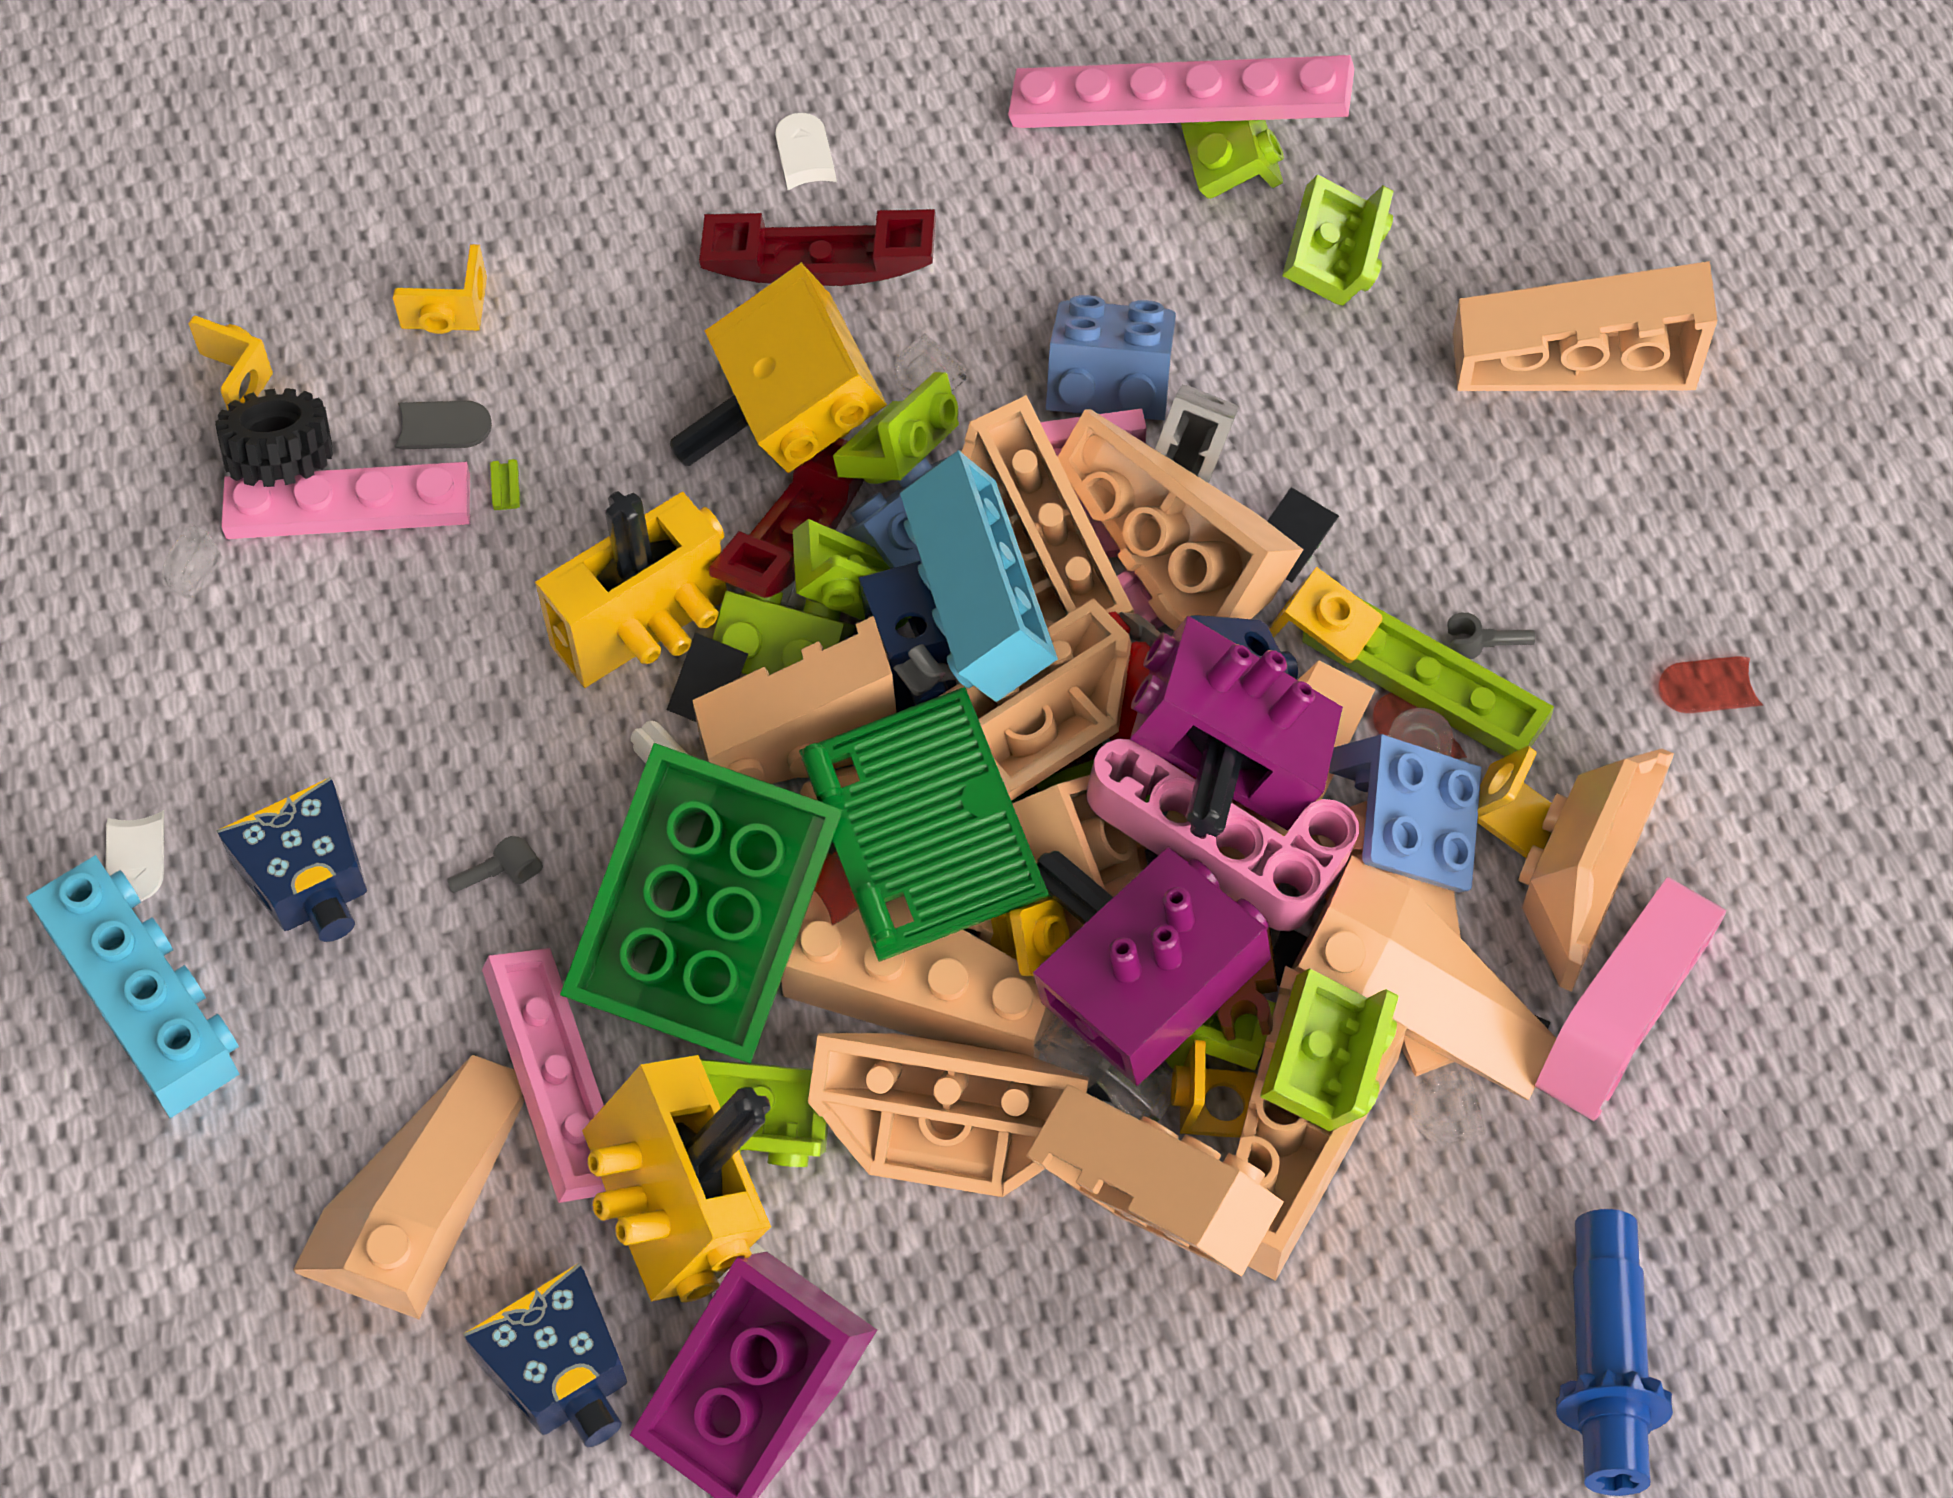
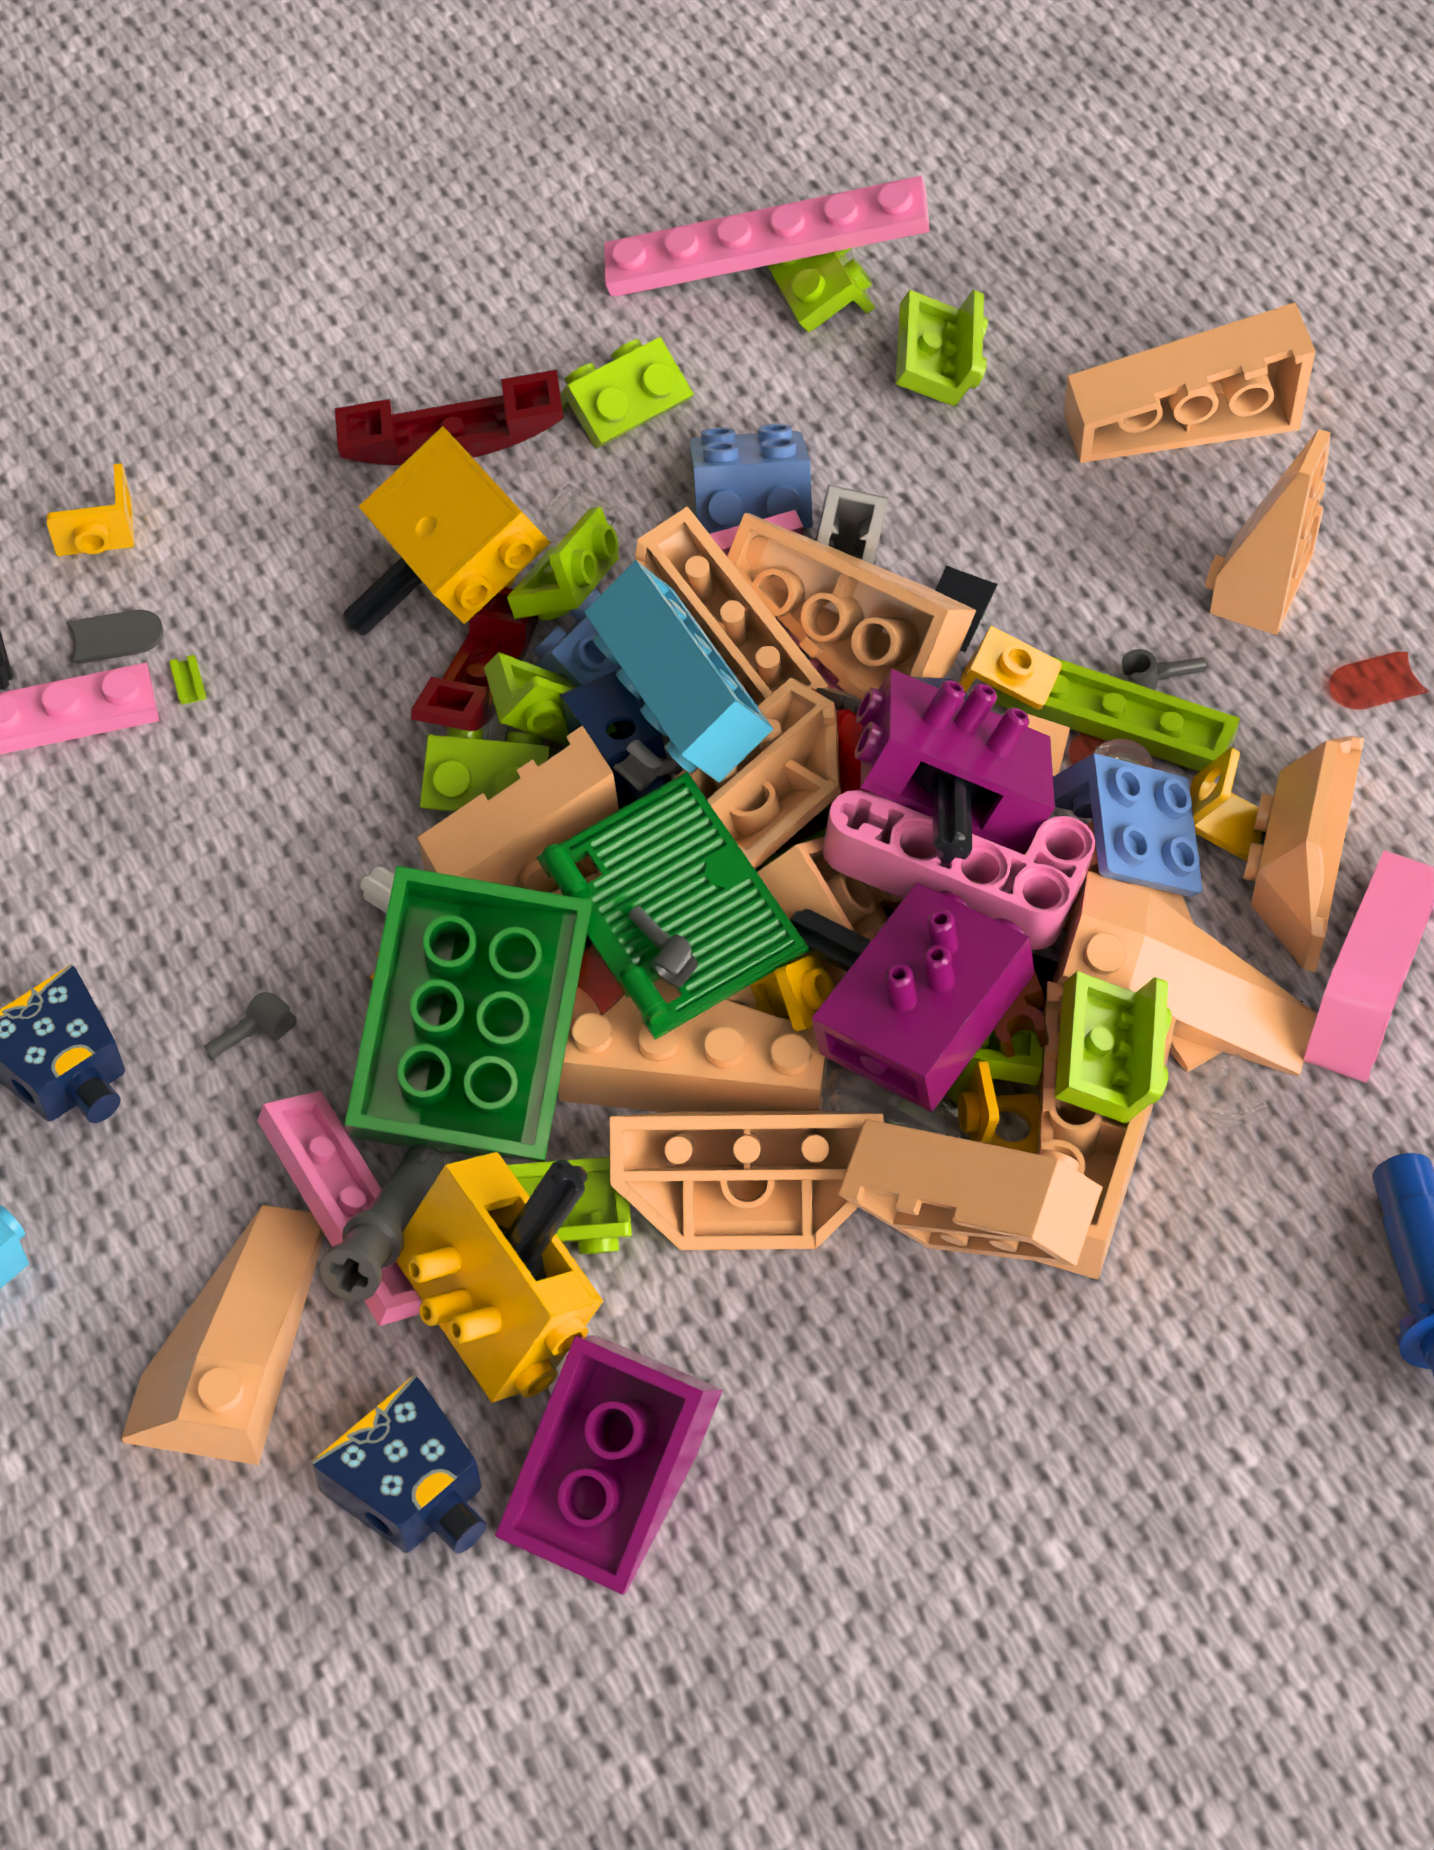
camera: 10 degrees left, 5 degrees down
(567, 1115) = (375, 1235): none -> dark grey pin
(634, 587) = (338, 743): yellow piece -> none
(705, 668) = (419, 810): black piece -> none
(804, 150) = (416, 343): white piece -> none
(912, 884) = (675, 958): none -> dark grey hand
(1003, 240) = (625, 392): none -> lime bracket
(1627, 529) = (1273, 546): none -> light nougat wedge

